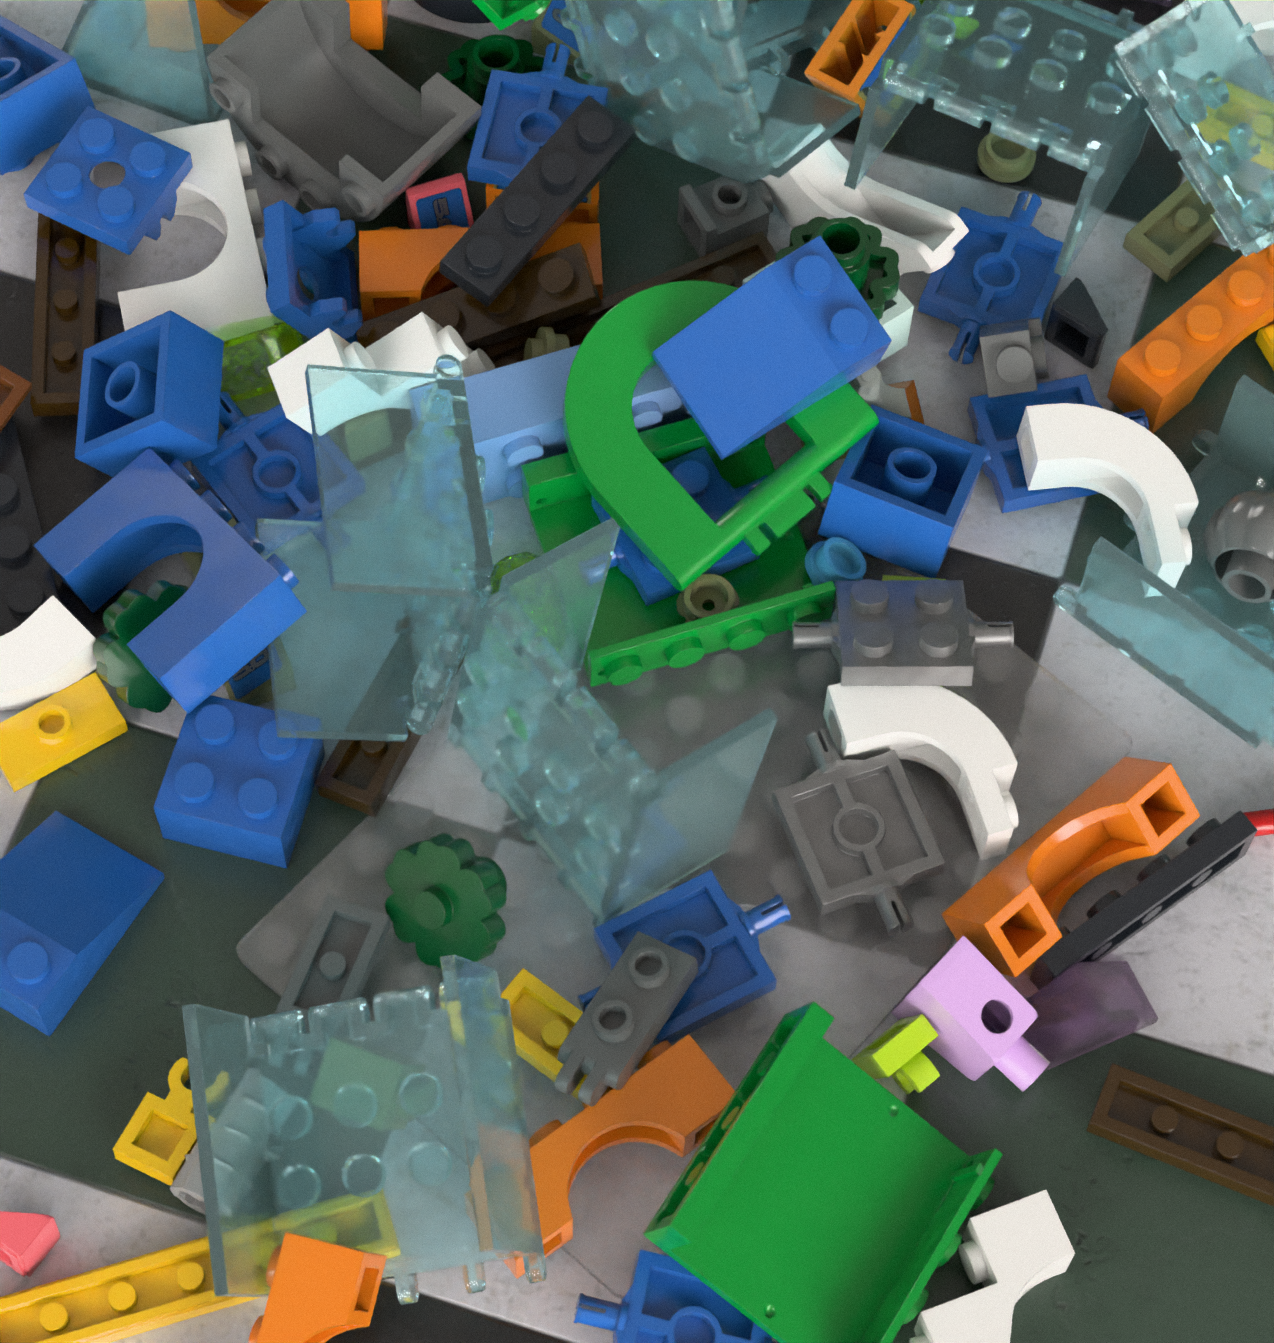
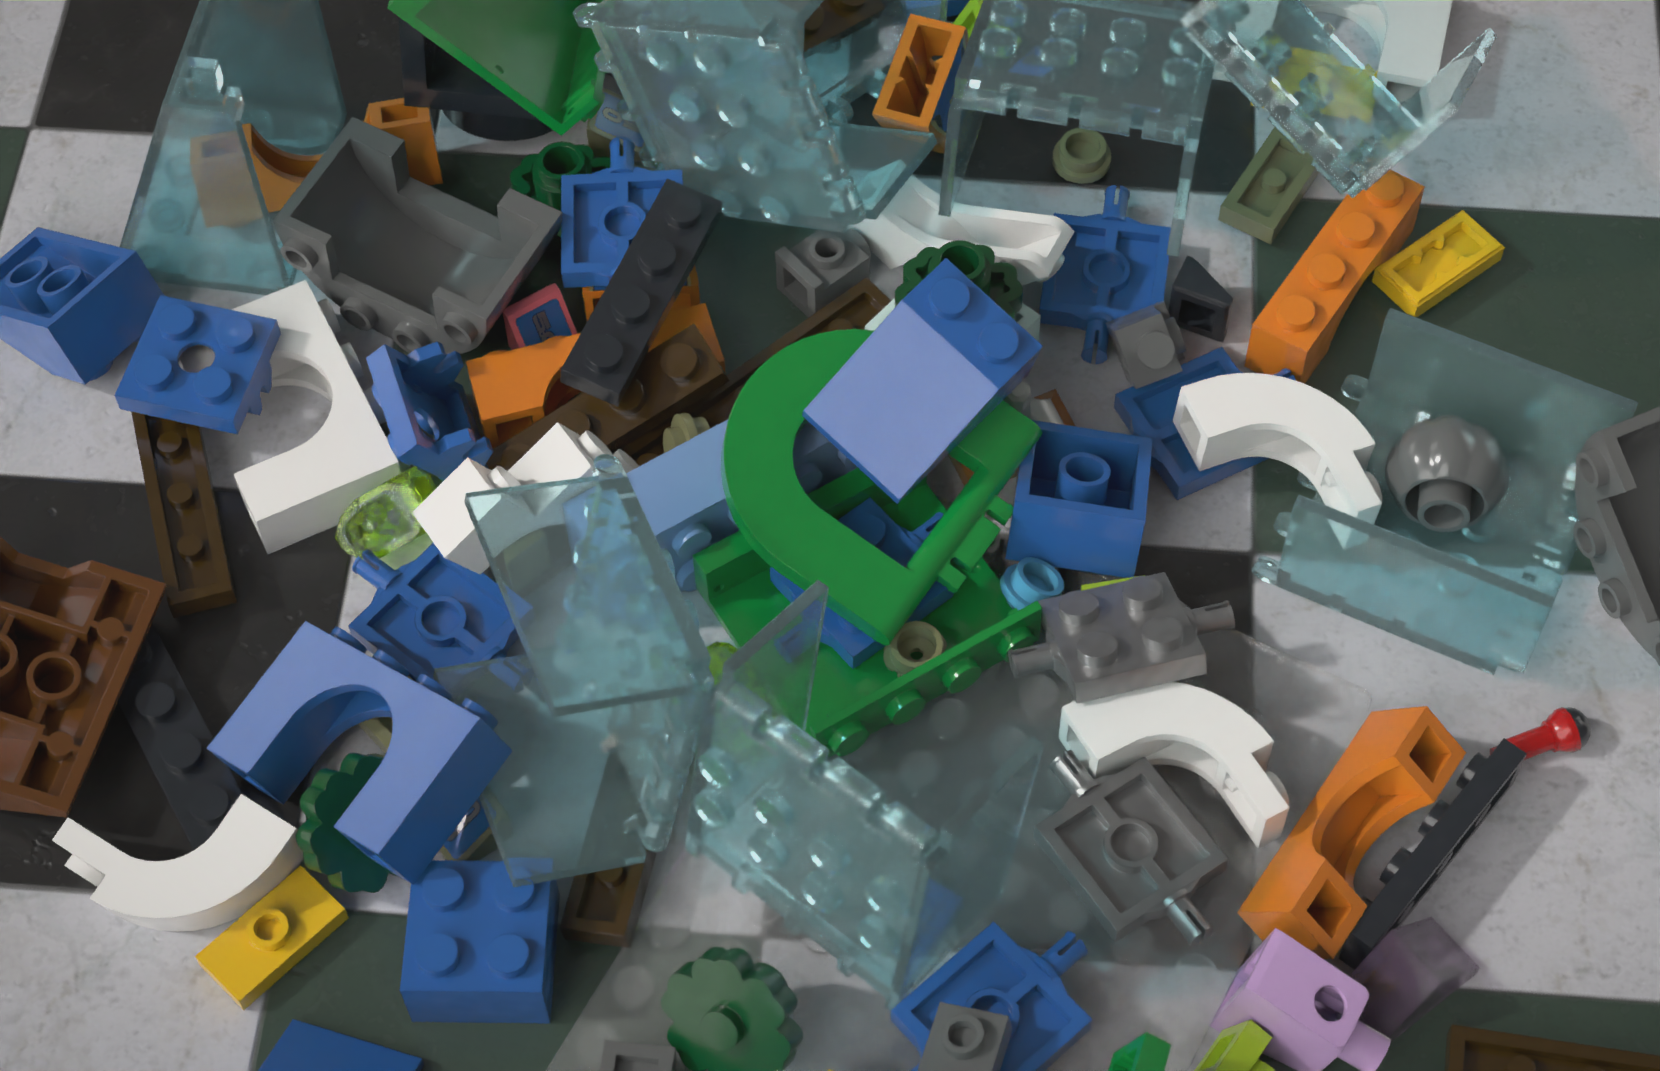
camera: 10 degrees left, 5 degrees down
(150, 390) = (292, 564): blue brick -> none

